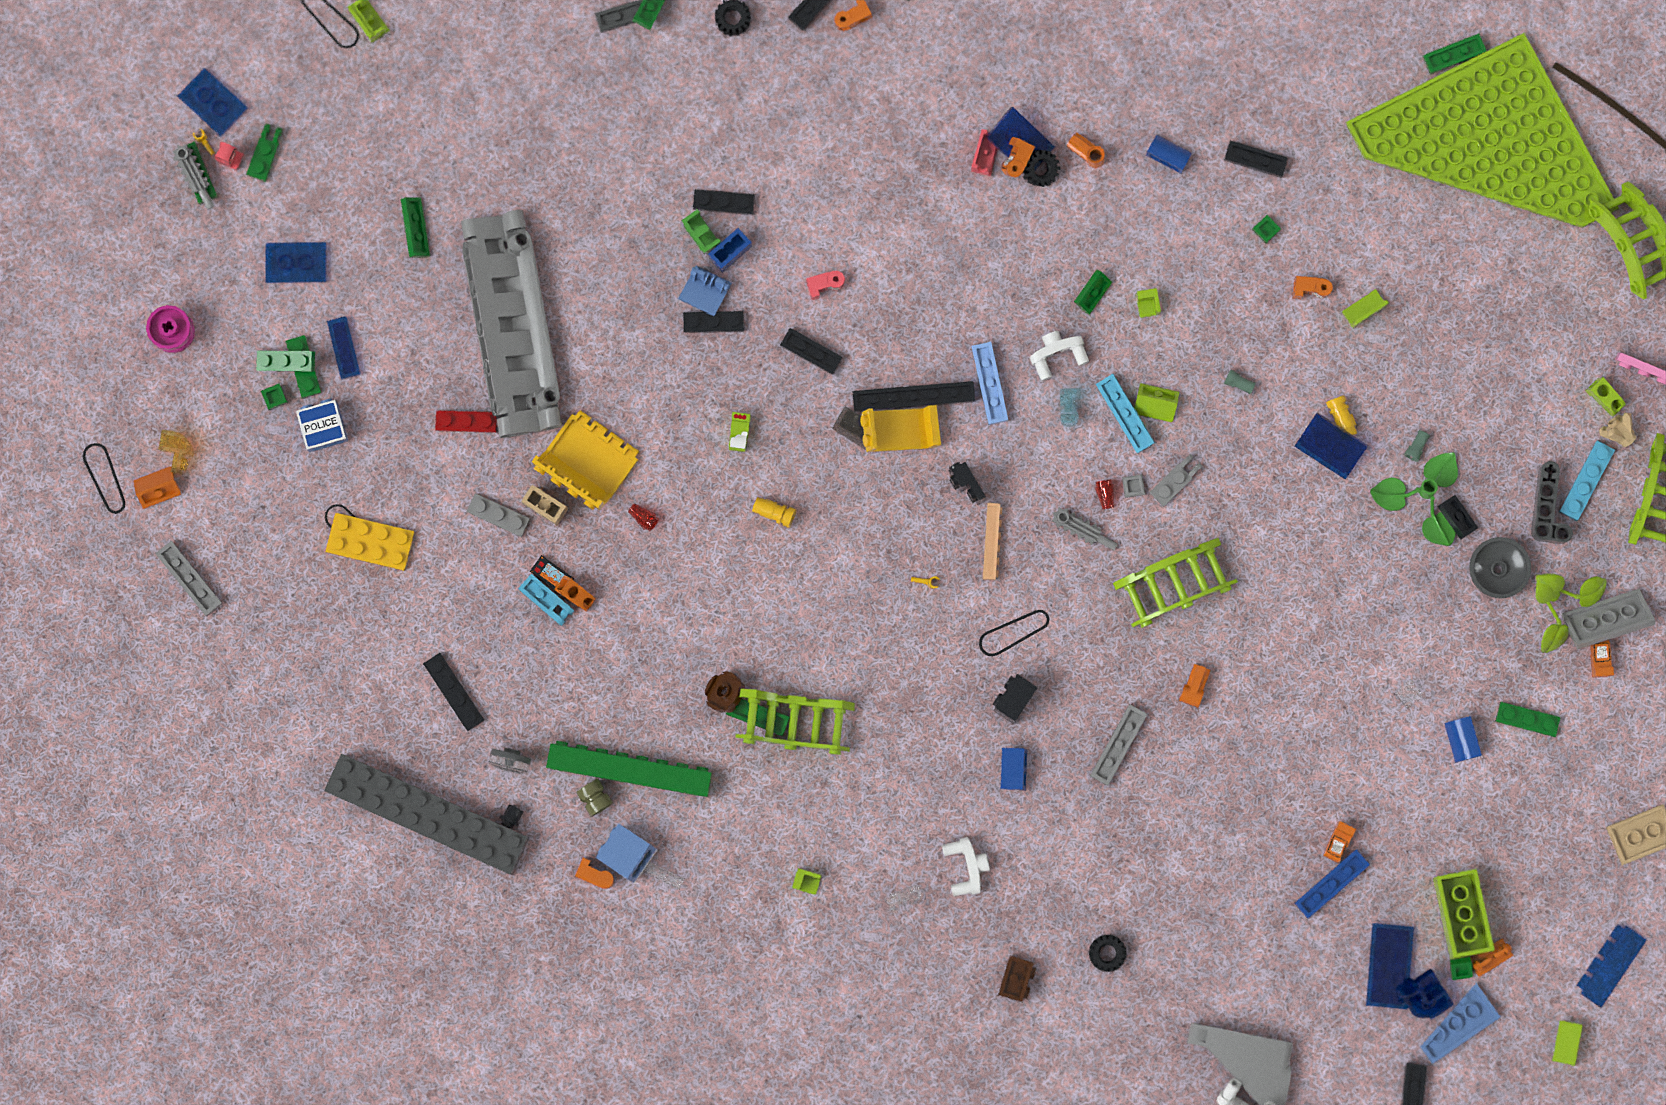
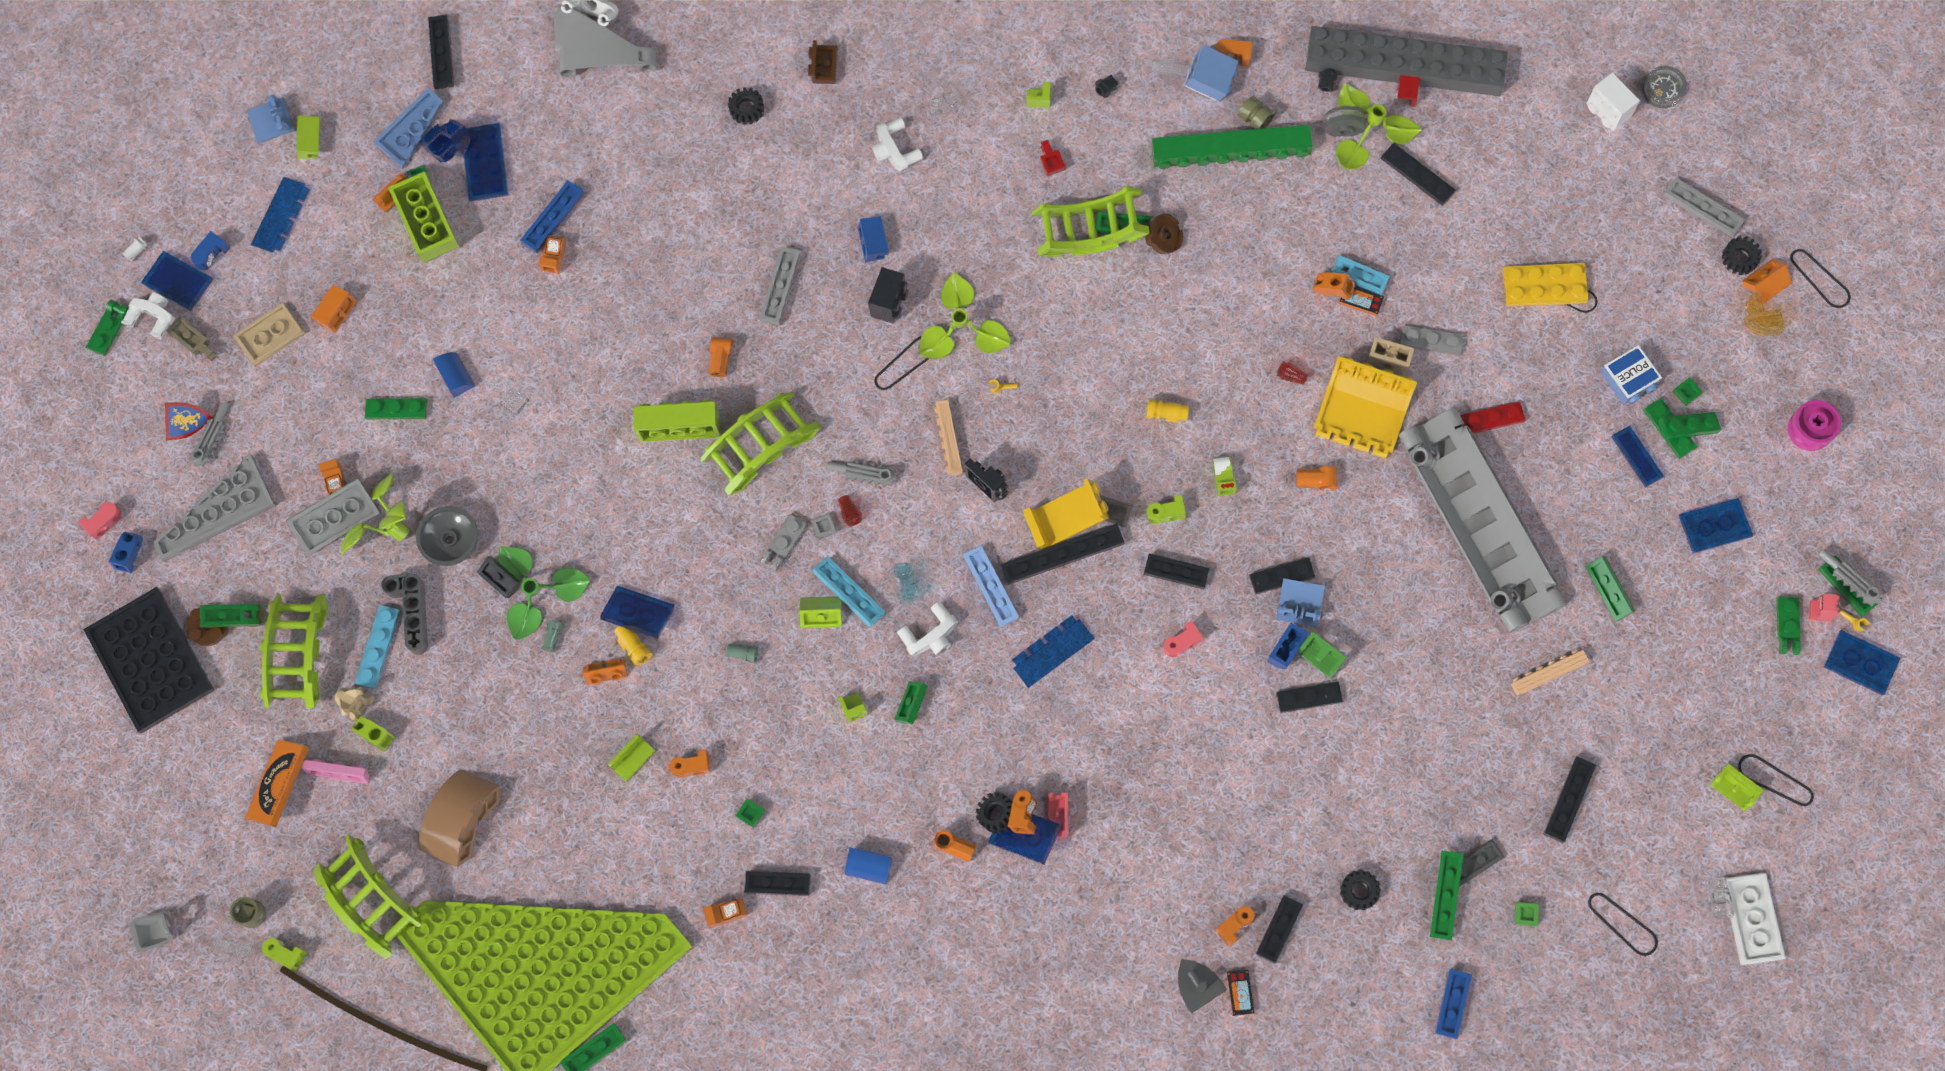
camera: 165 degrees right, 10 degrees down
(163, 509) = (1747, 246): none -> black tyre
(180, 714) = (1664, 87): none -> clear piece
(239, 707) = (1612, 102): none -> white brick
(434, 782) = (1408, 88): none -> red panel
(455, 747) = (1399, 128): none -> lime plant
(496, 166) = (1550, 672): none -> light nougat piece
(519, 48) = (1569, 799): none -> black plate
(650, 405) = (1320, 478): none -> orange piece
(735, 872) = (1106, 86): none -> black hose
(803, 410) = (1166, 512): none -> lime leg
(813, 805) = (1051, 160): none -> red plate
(951, 304) = (1050, 655): none -> clear blue windscreen
(977, 640) = (936, 342): none -> lime plant
(1252, 623) = (676, 421): none -> lime brick
(1309, 144) = (725, 912): none -> orange leg
(1366, 397) = (613, 671): none -> orange hinge
(1541, 296) = (453, 816): none -> medium nougat panel
(1572, 842) = (333, 308): none -> orange hinge
(1604, 1076) = (270, 119): none -> medium blue hinge

